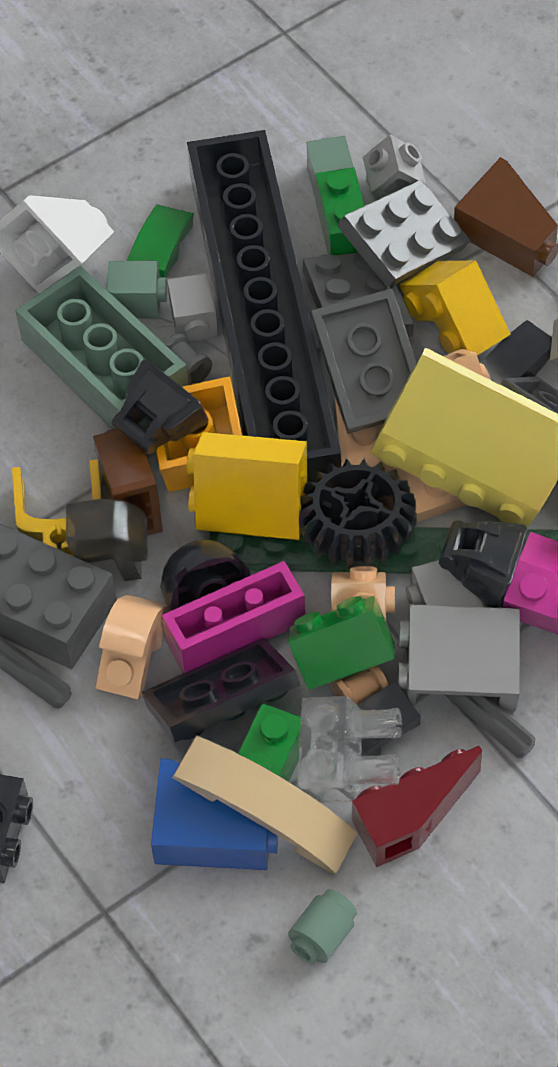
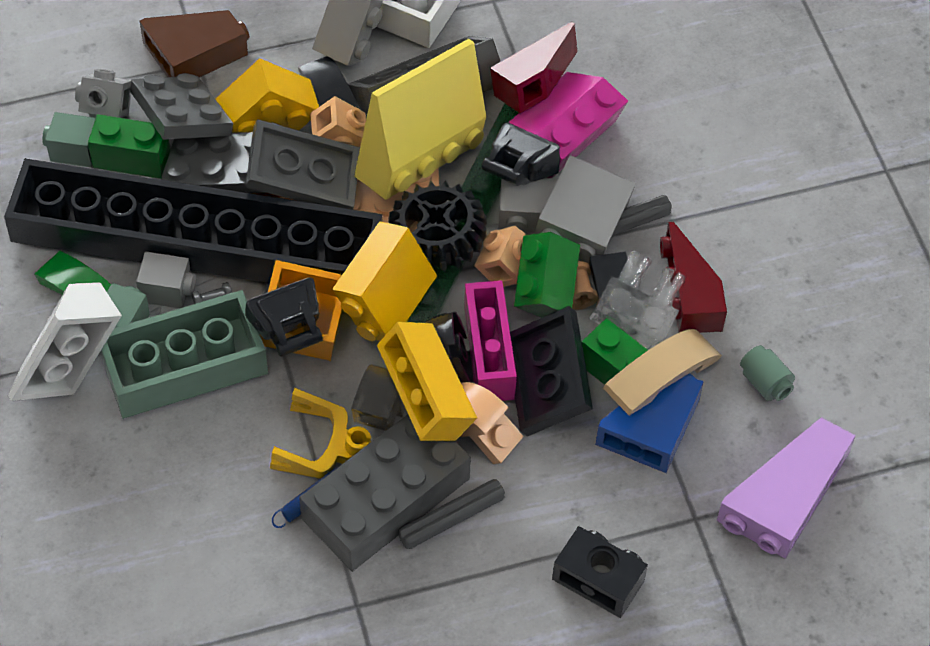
camera: 75 degrees left, 0 degrees up
(122, 559) = (426, 381): none -> yellow brick
(128, 475) = (323, 369): reddish brown slope -> none
(168, 996) = (787, 489): none -> lavender slope

